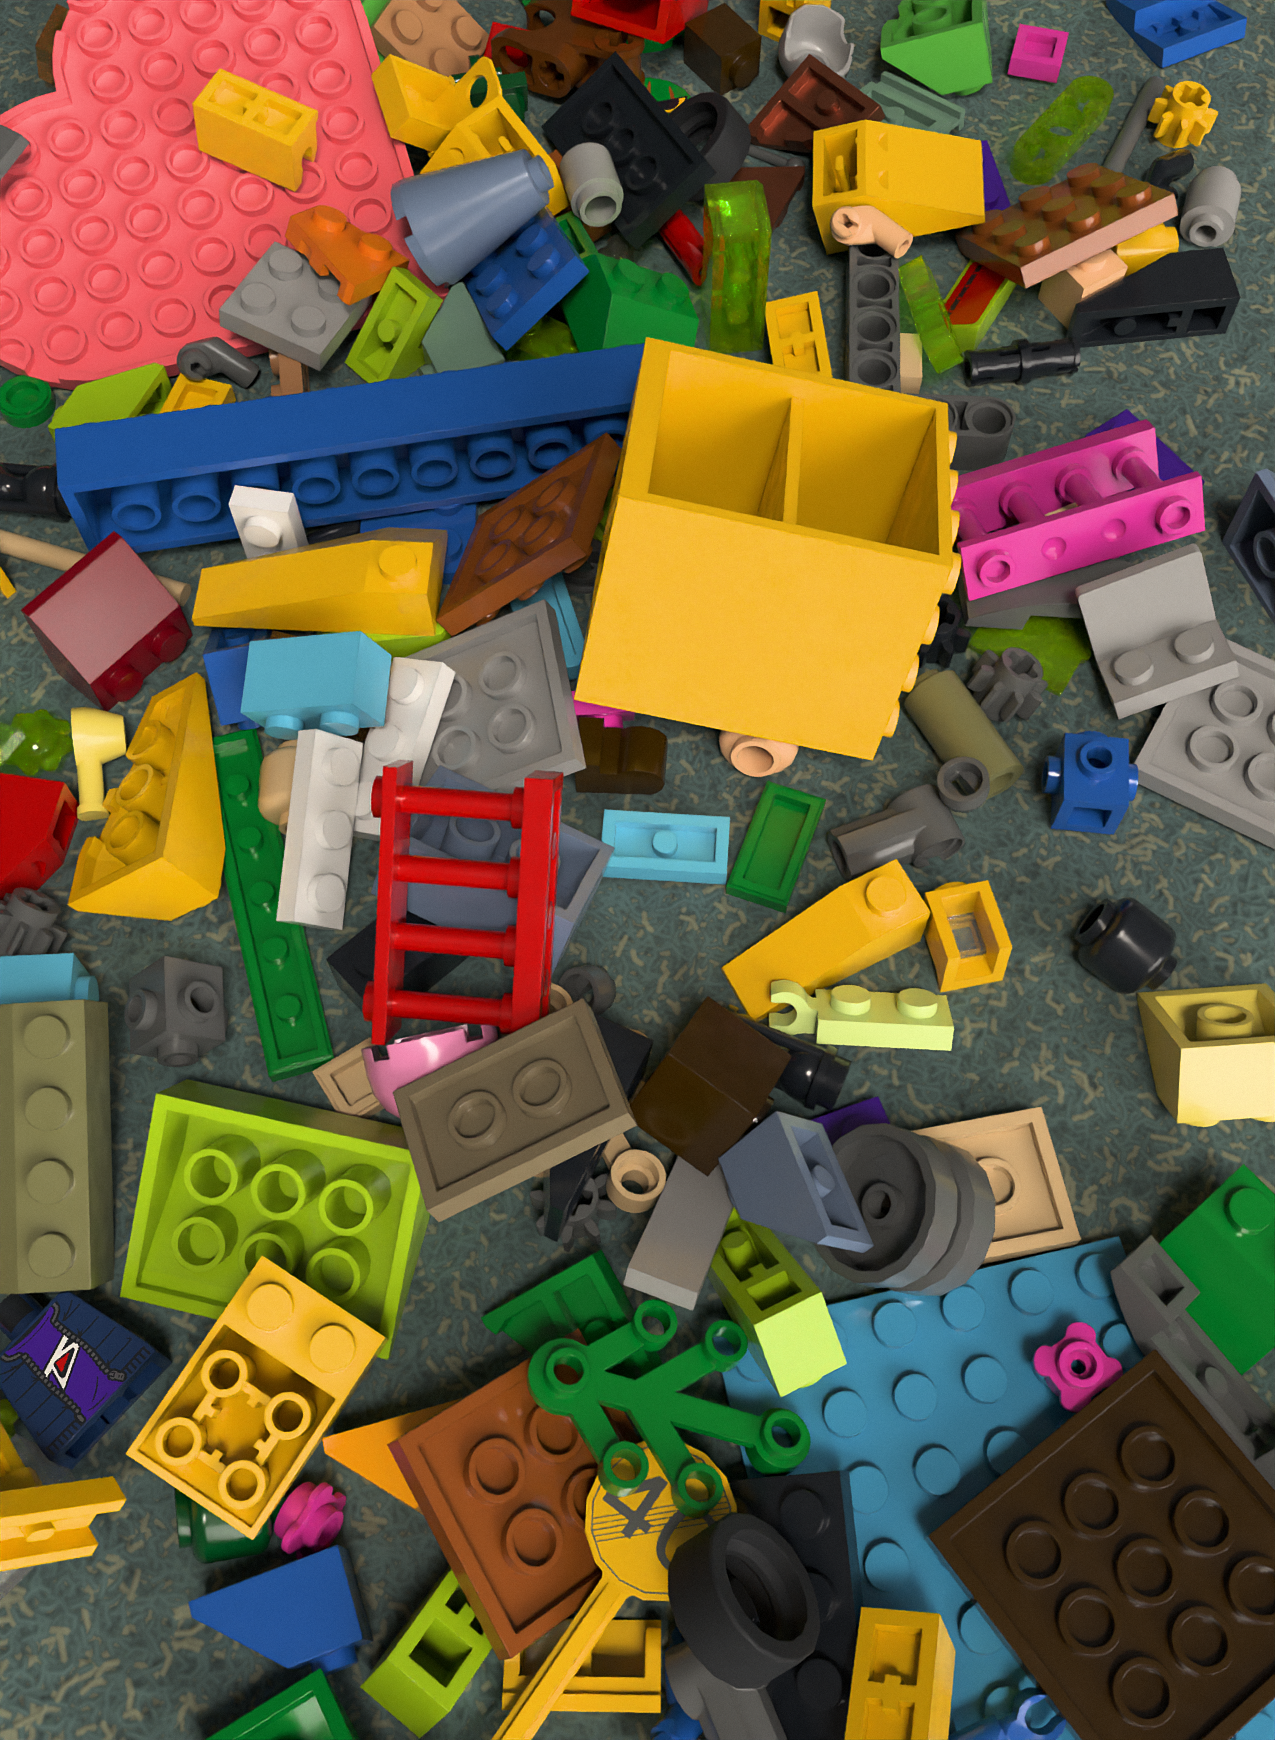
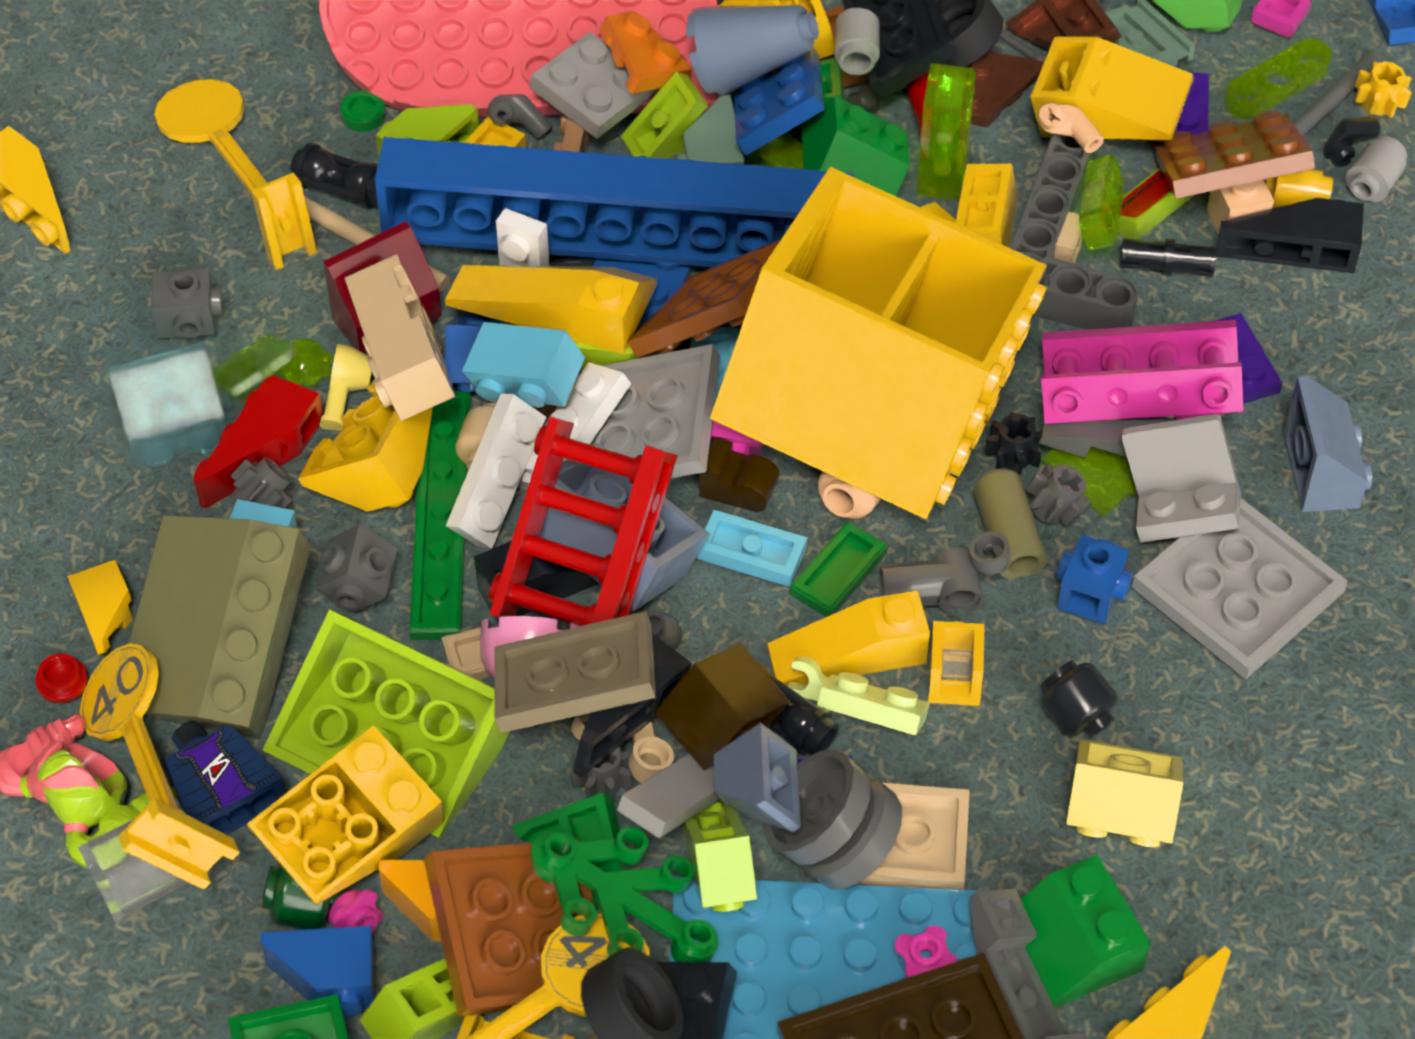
camera: 15 degrees right, 10 degrees down
(148, 690) = (399, 339): none -> tan wedge

